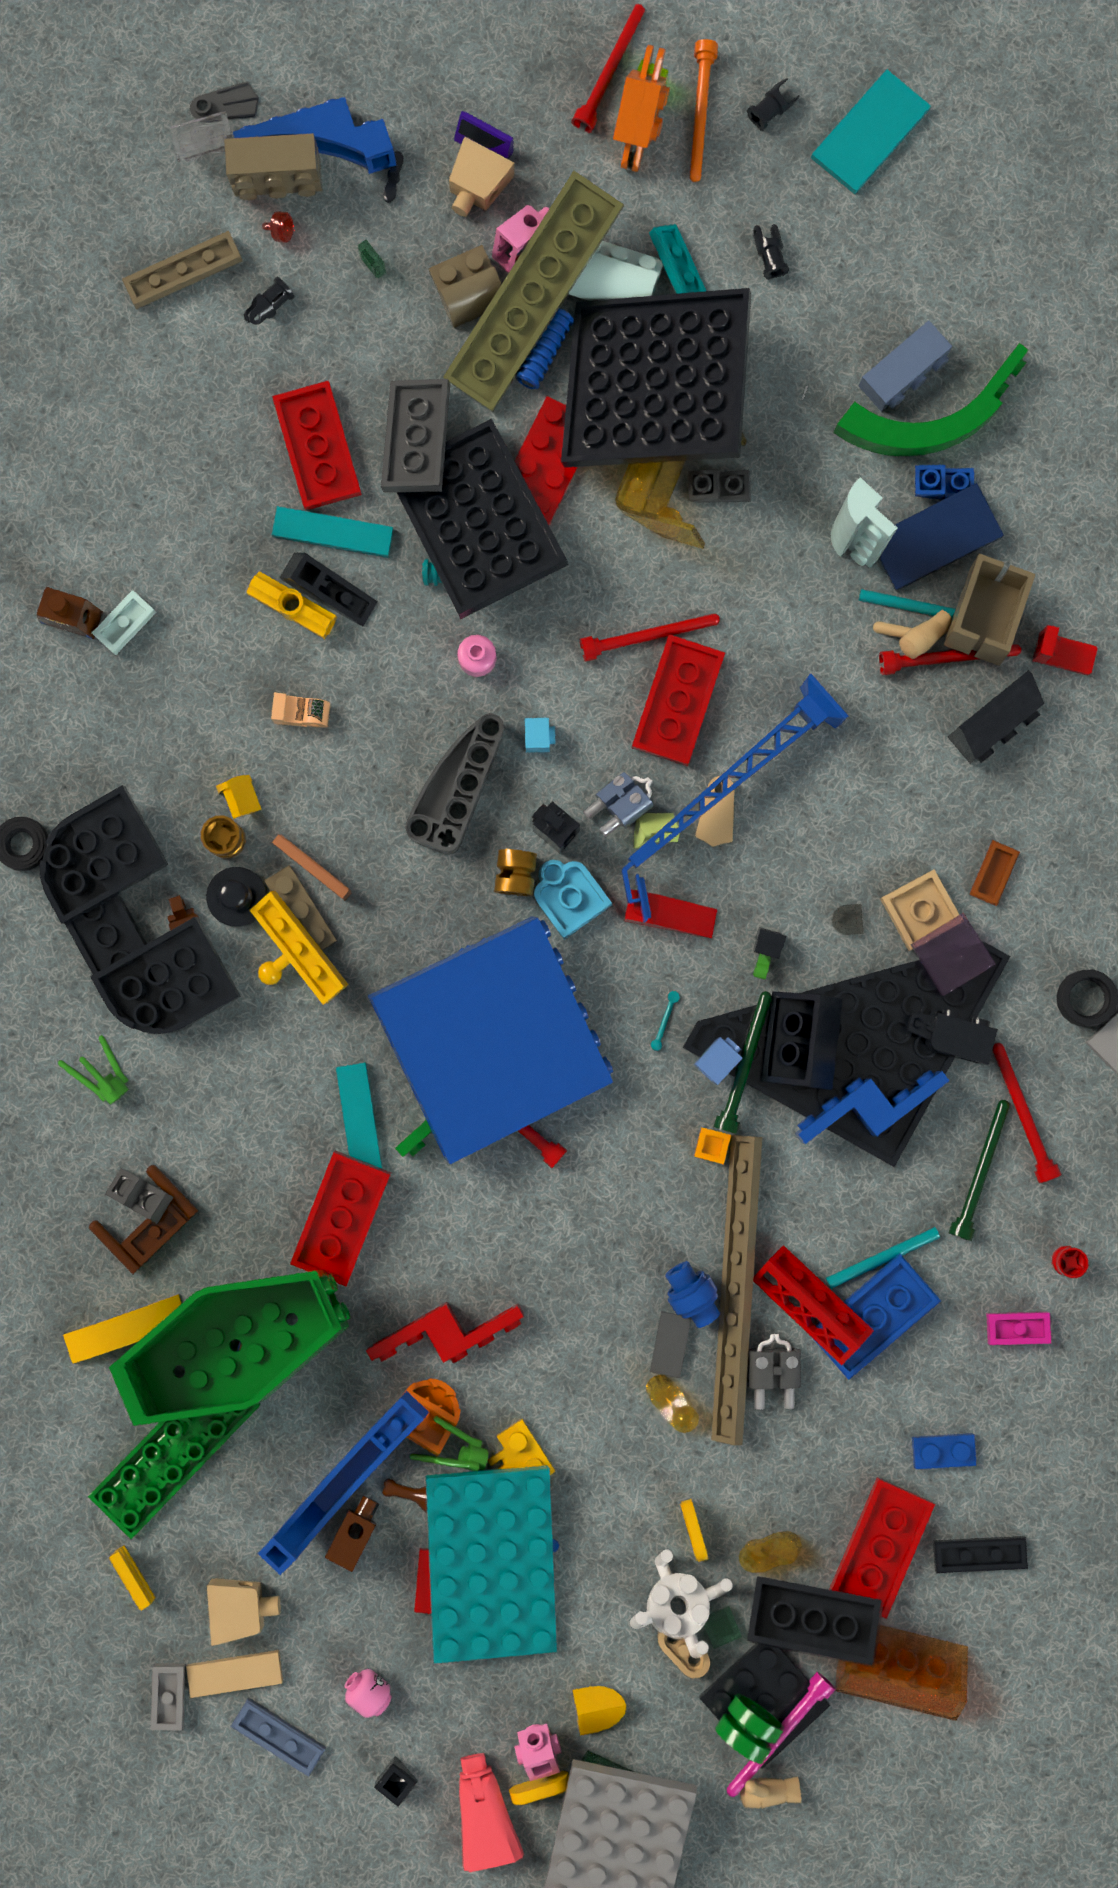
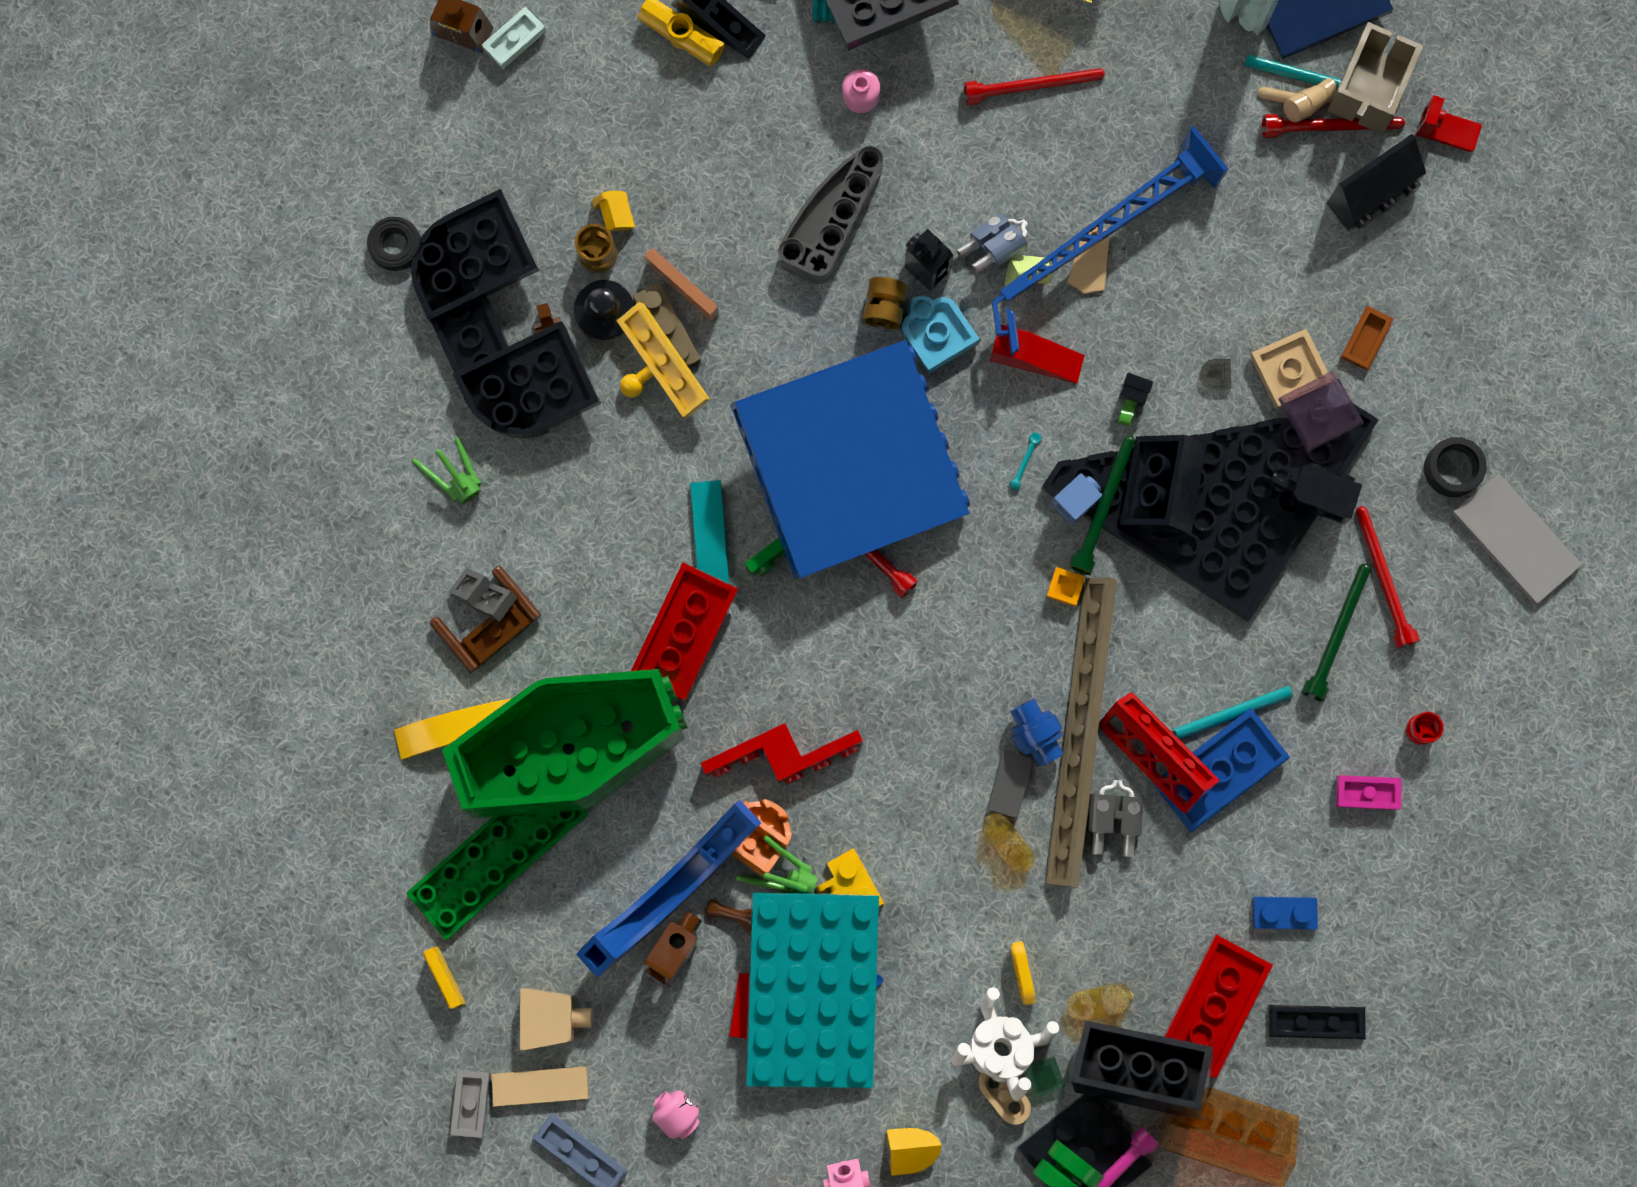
camera: 10 degrees right, 5 degrees down
(300, 711) = (681, 133): light nougat leg -> none
(538, 735) = (917, 172): medium azure plate -> none
(678, 700) = (1058, 148): red plate -> none
(871, 1105) = (1228, 554): blue bracket -> none

